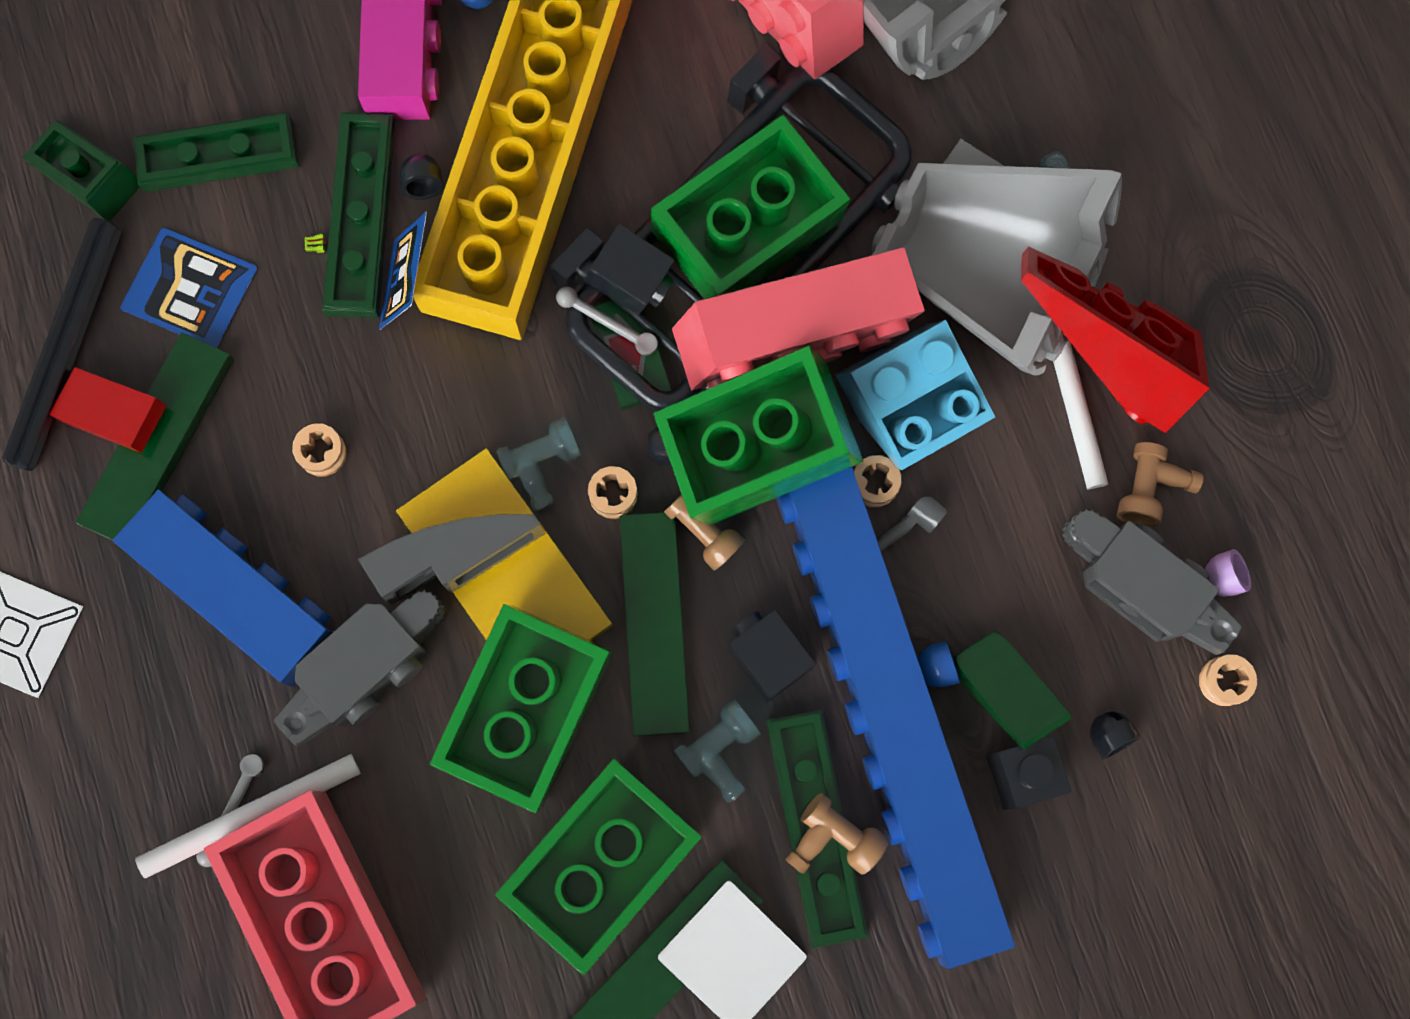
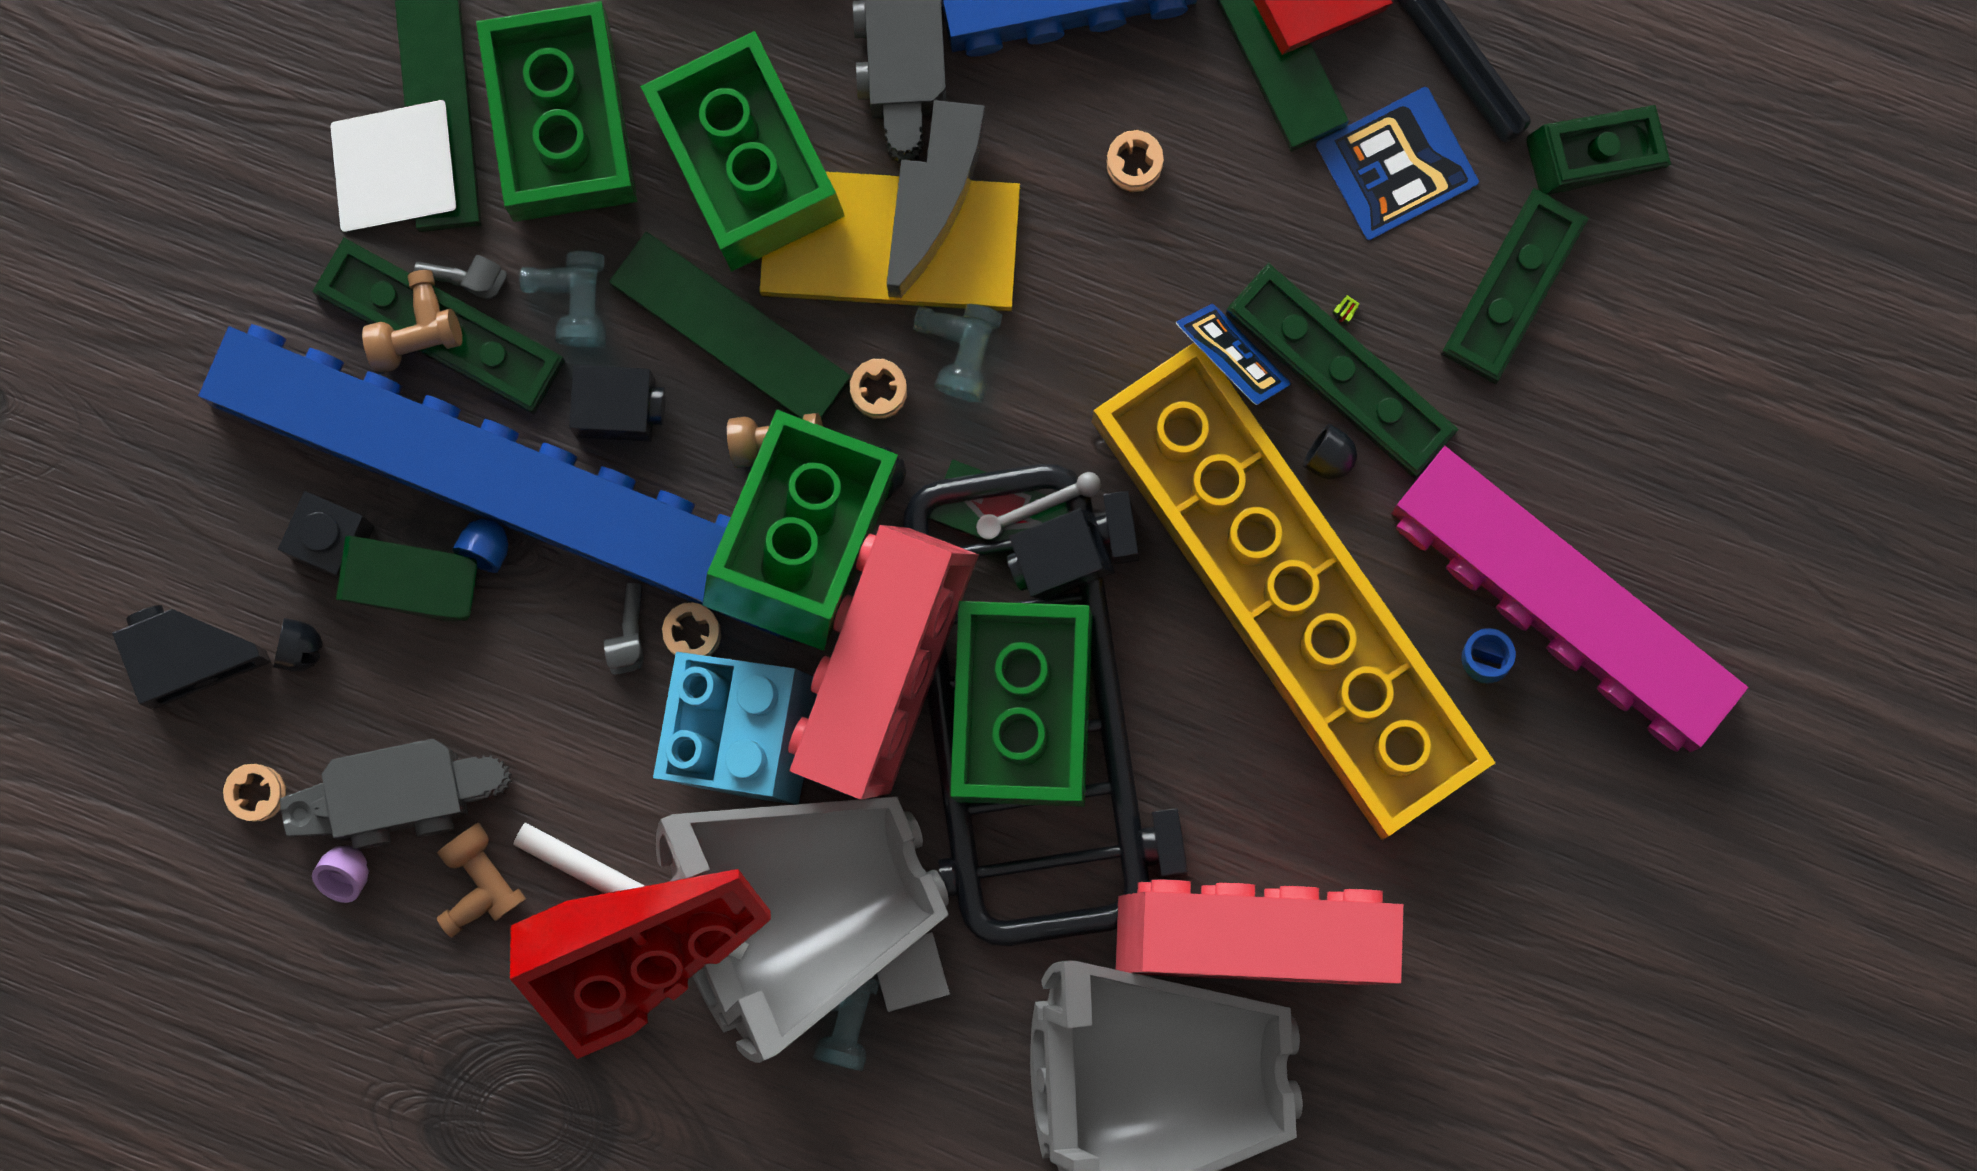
camera: 135 degrees right, 5 degrees up
(760, 824) = (482, 278): none -> dark grey hand
(1189, 806) = (179, 655): none -> black slope

